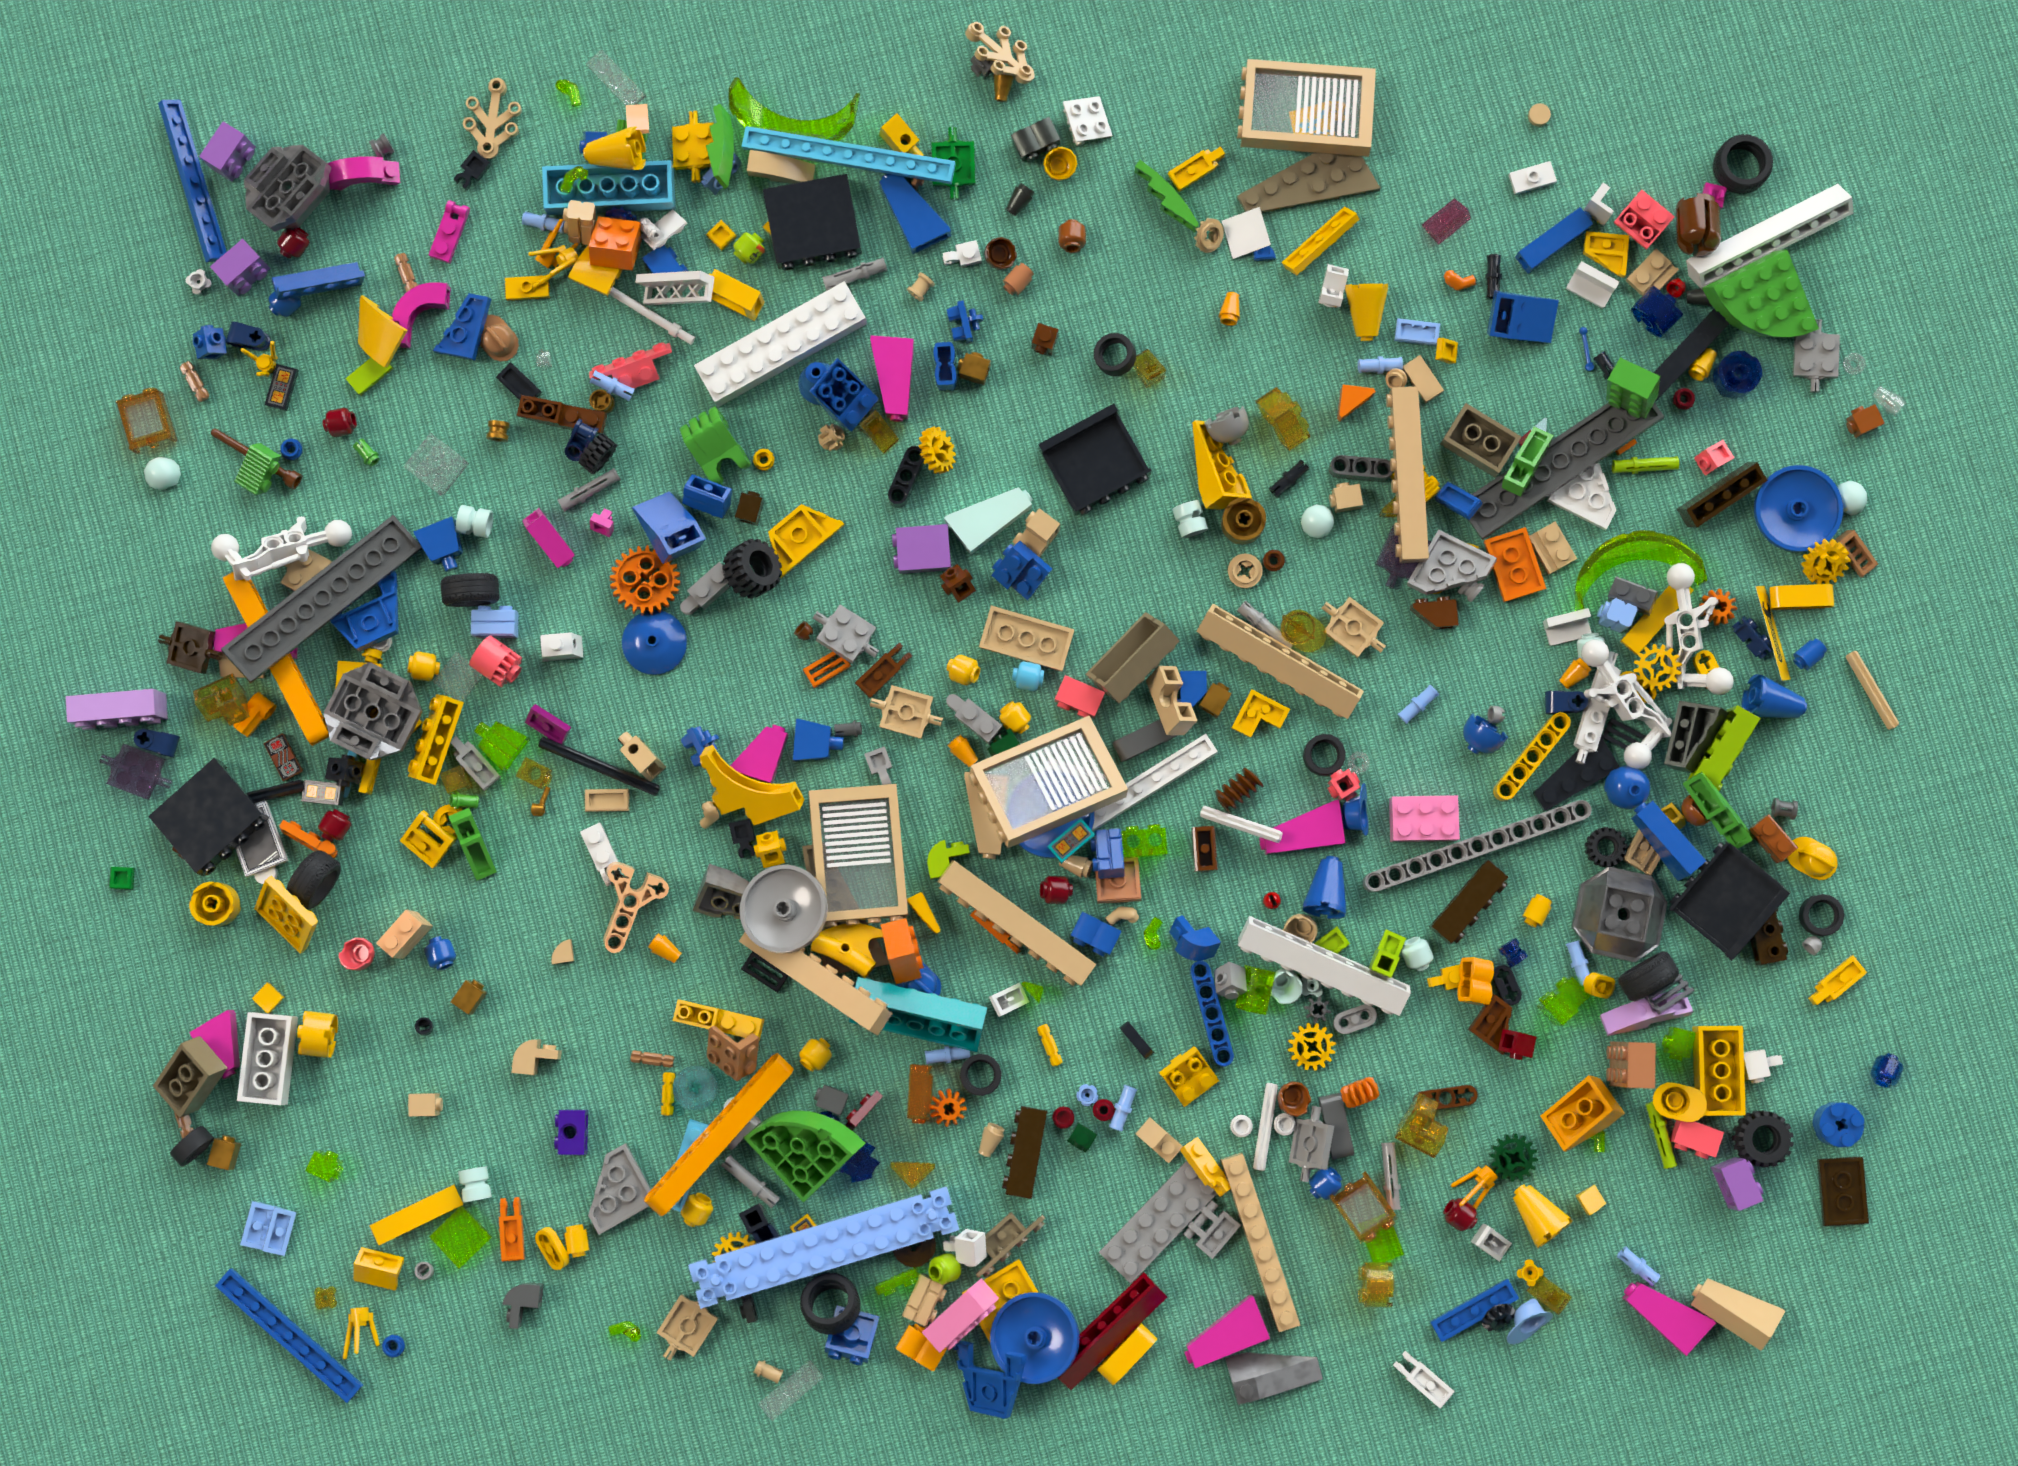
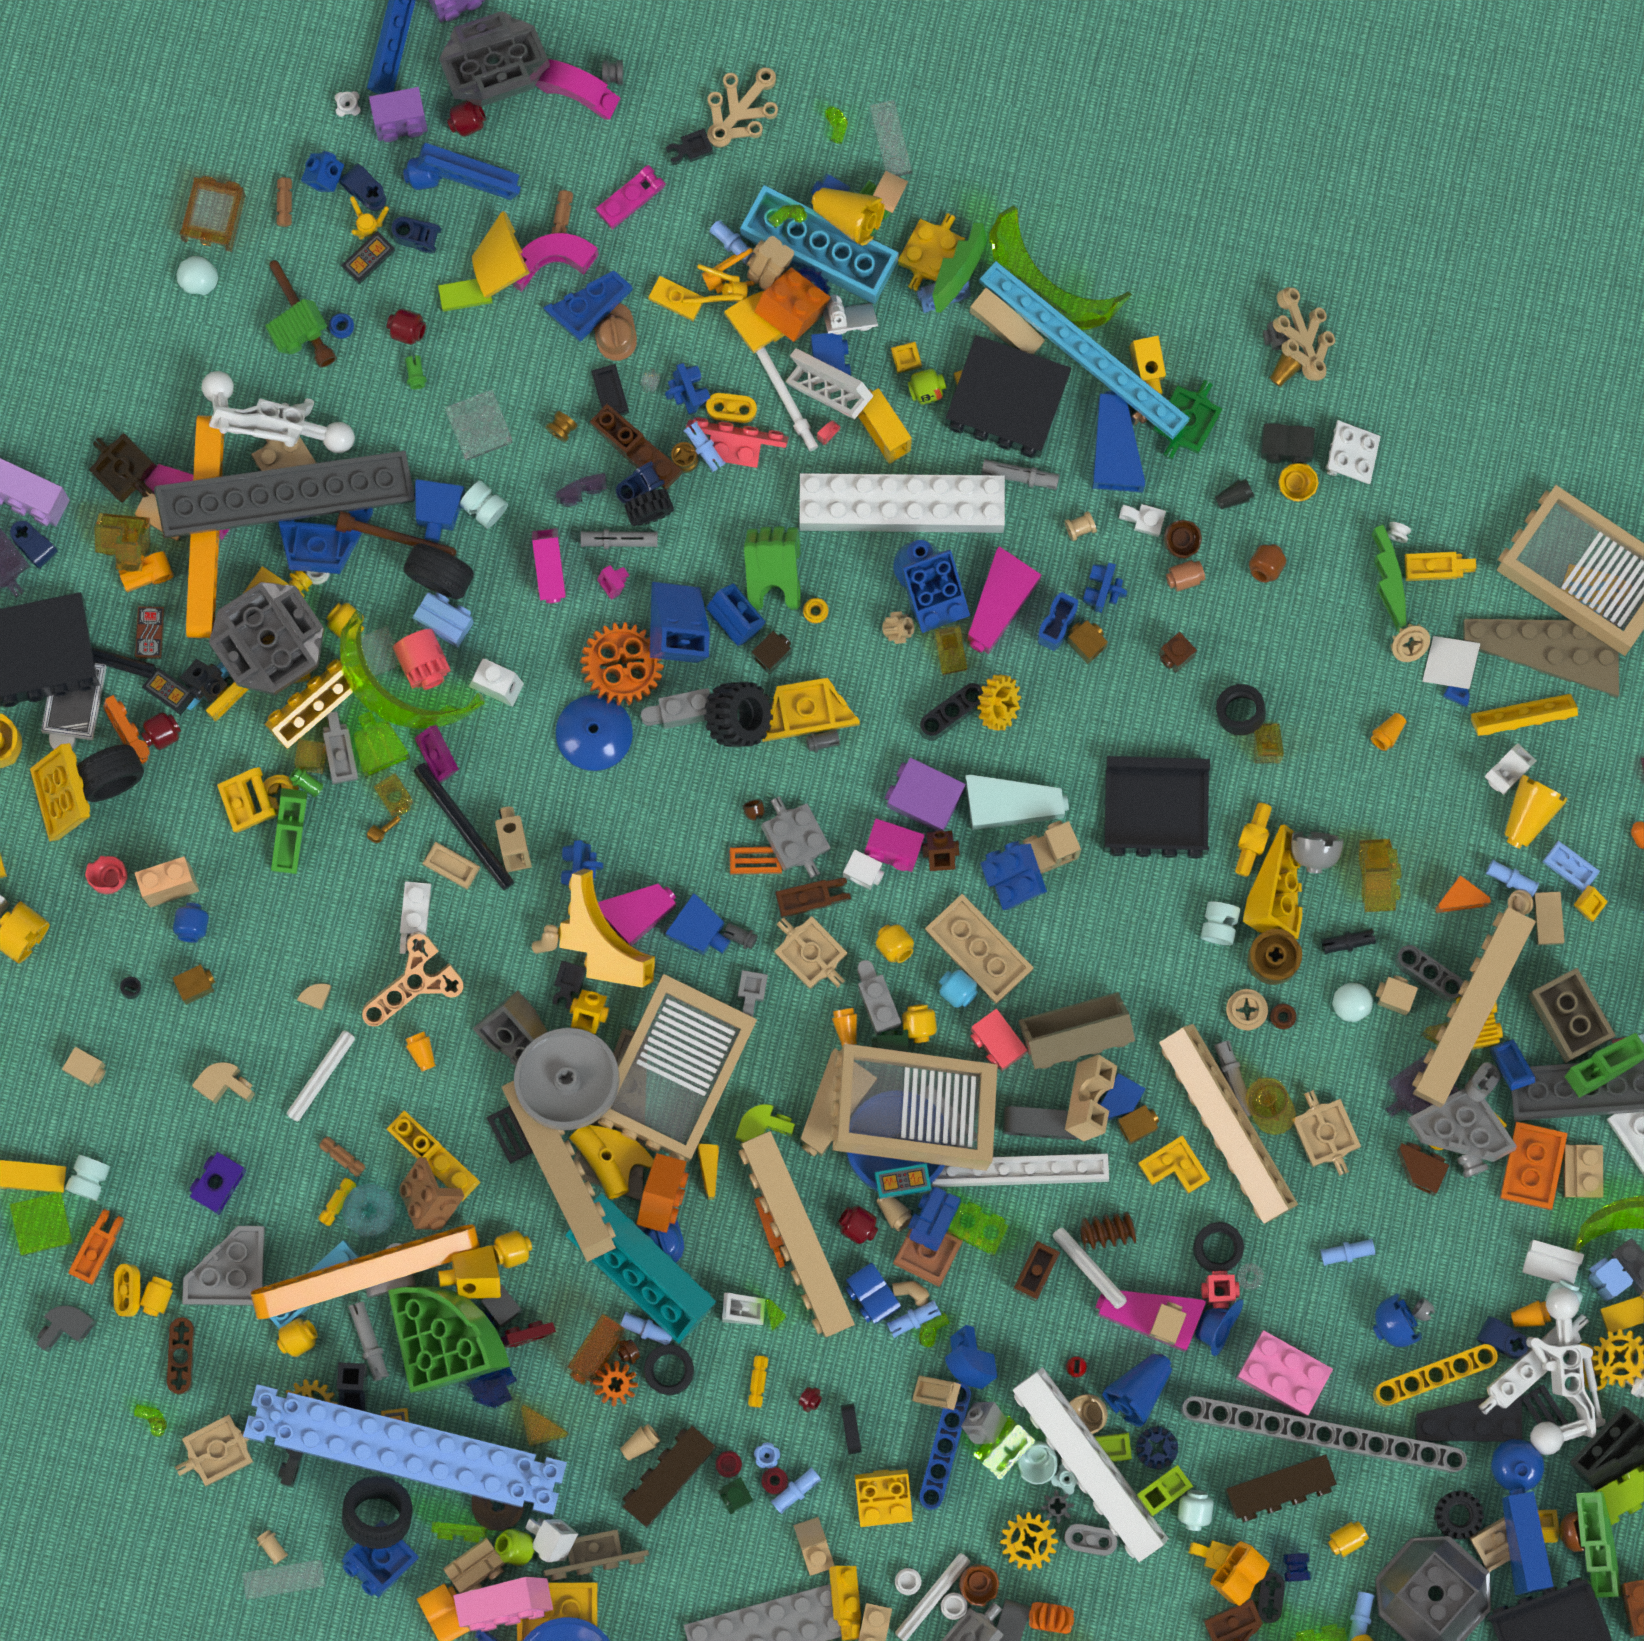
camera: 25 degrees right, 5 degrees down
(307, 348) = (418, 234): none -> dark blue piece
(382, 593) = (347, 523): none -> reddish brown piece
(484, 709) = (381, 701): none -> clear neon green windscreen
(535, 476) = (572, 493): none -> clear purple slope
(571, 352) = (683, 390): none -> blue hips
(601, 1012) = (320, 1076): none -> white axle
(615, 346) = (732, 405): none -> yellow plate
(621, 1290) = (173, 1375): none -> reddish brown beam
(696, 323) = (827, 432): none -> coral tile
(799, 1089) = (473, 1274): none -> yellow torso
(824, 552) = (822, 740): none -> dark grey pin
(910, 629) = (863, 870): none -> white brick
(921, 599) = (894, 845): none -> dark pink brick
(943, 1079) = (628, 1351): none -> reddish brown plate
(1095, 1036) = (810, 1399): none -> dark red plate
(1135, 934) = (914, 1318): none -> light blue pin
(1153, 159) = (1398, 532): none -> white bush
(1178, 444) = (1253, 839): none -> yellow axle
(1183, 978) = (936, 1392): none -> tan tile
(1321, 831) = (1168, 1323): none -> tan brick
(1355, 931) = (1169, 1446): none -> dark blue gear
(1448, 525) = (1479, 1079): none -> light grey beam

